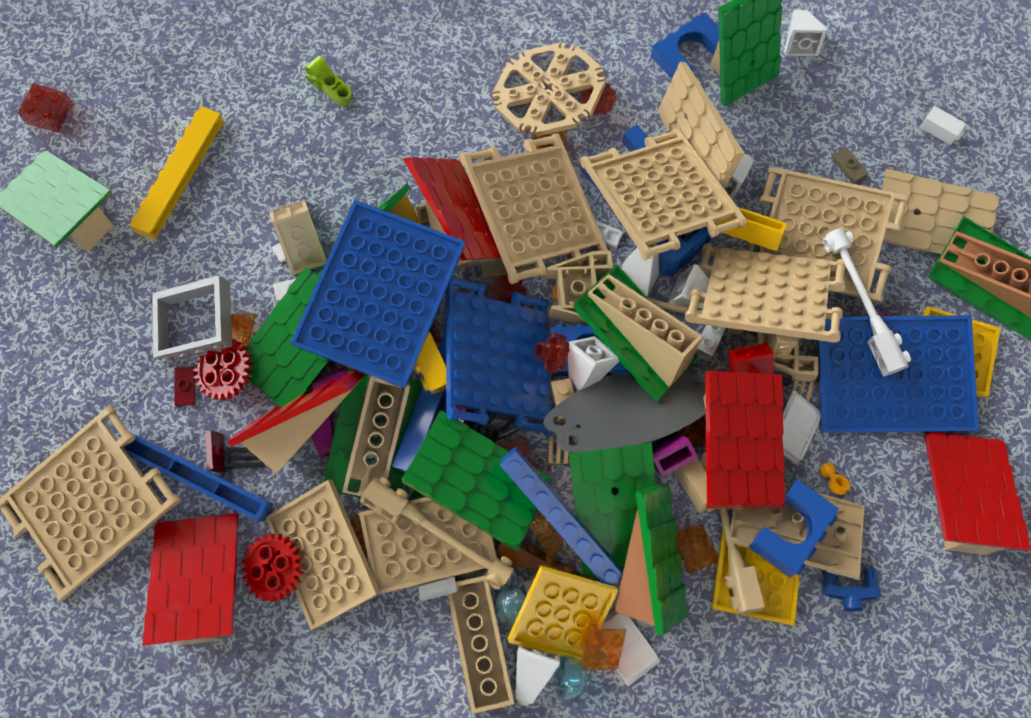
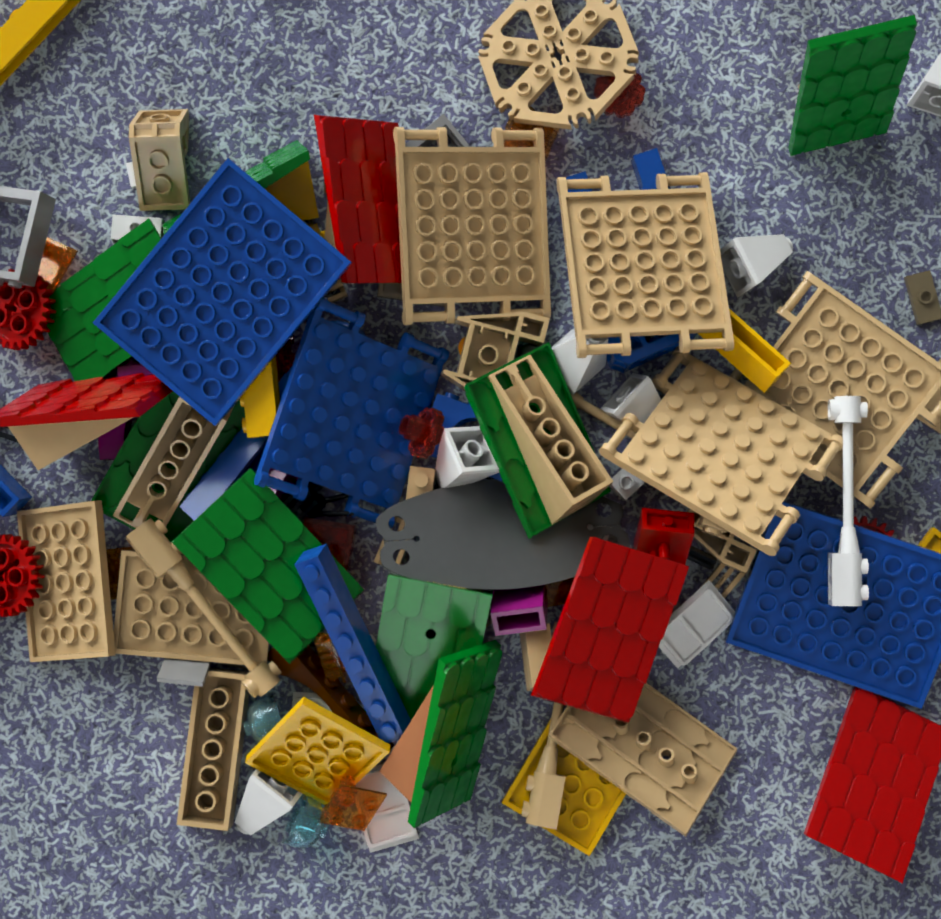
camera: 30 degrees right, 15 degrees up
(503, 289) = (392, 326): clear red plant -> none
(610, 235) = (559, 288): white tile -> none
(693, 113) = (726, 158): tan piece -> none
(696, 549) = (511, 726): clear orange hinge -> none
(700, 29) = (741, 49): blue arch -> none
(817, 514) = (666, 749): blue arch -> none
(837, 483) = (713, 689): light orange plate -> none
(852, 596) = (674, 849): blue connector -> none

